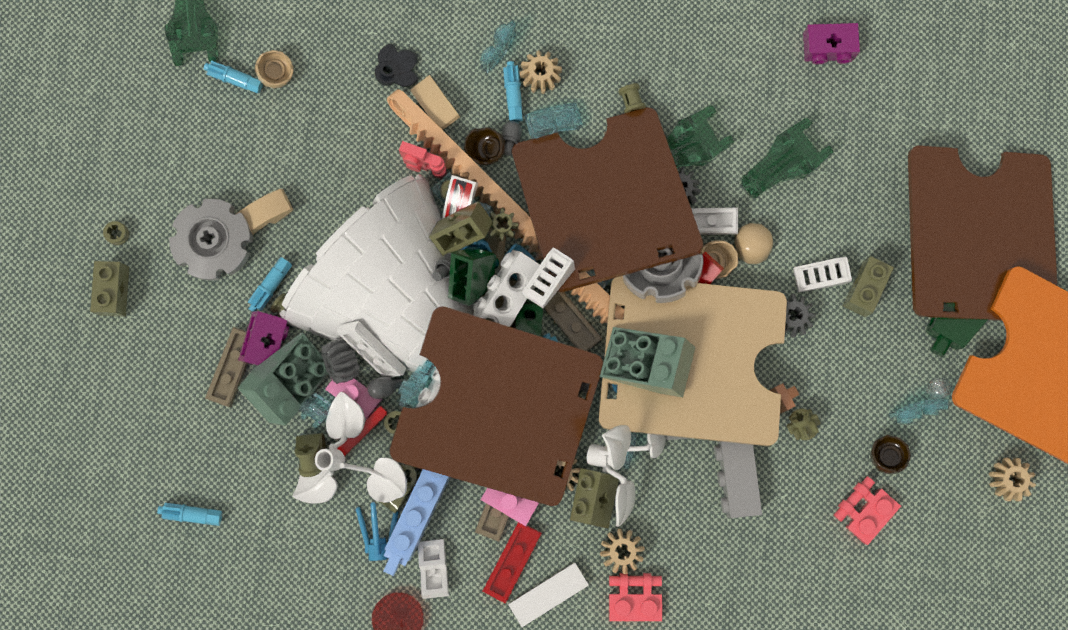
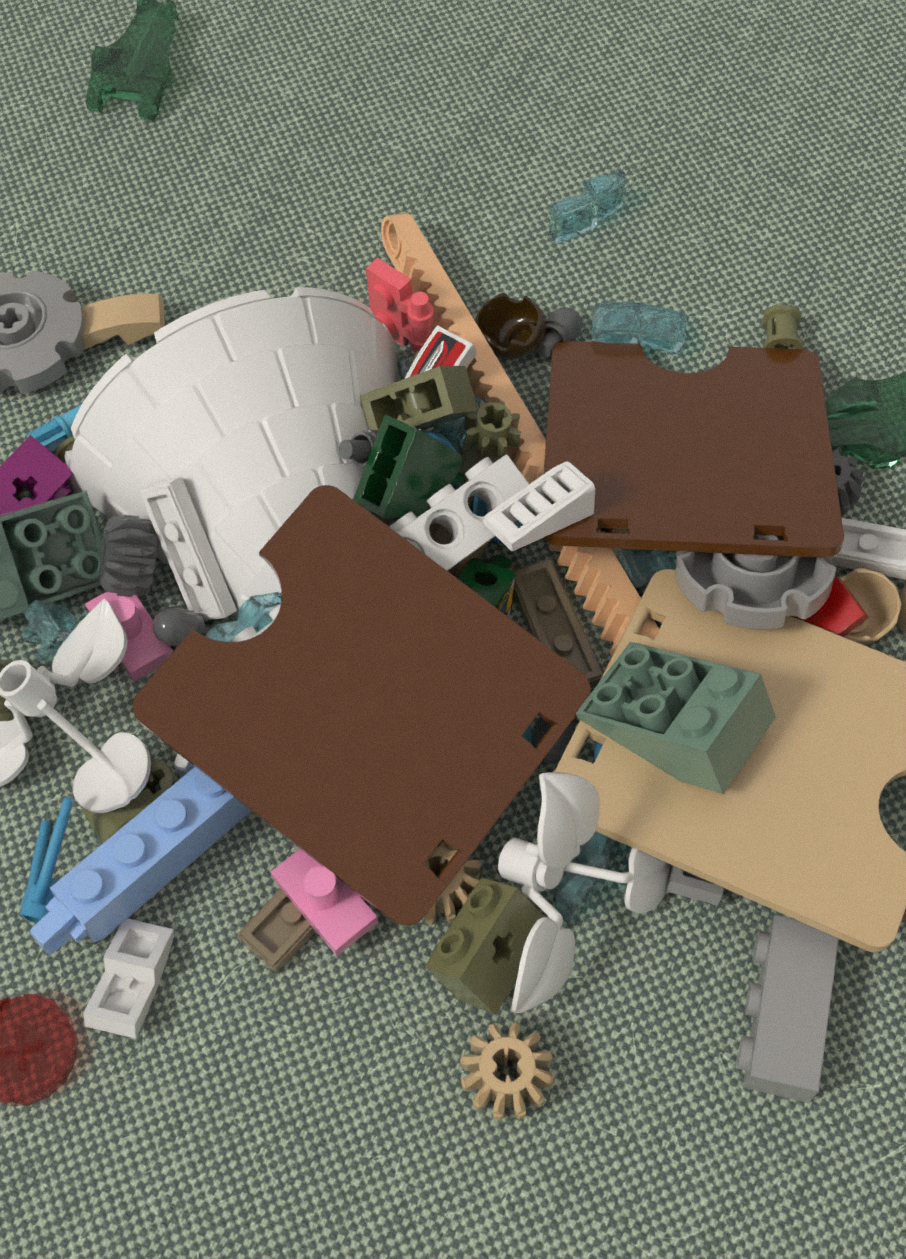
camera: 20 degrees right, 20 degrees down
(233, 76) = (159, 137): medium azure piece -> none
(274, 69) = (227, 142): tan hair -> none
(369, 424) = (89, 700): red tile -> none
(399, 64) = (415, 193): black plate -> none
(435, 102) = (456, 251): tan slope -> none
(511, 562) = (283, 1020): red tile -> none
(513, 91) = (589, 267): medium azure piece -> none
(530, 69) = (642, 256): tan gear -> none
(548, 594) = (328, 1108): white tile -> none
(635, 606) = (492, 1197): coral plate -> none

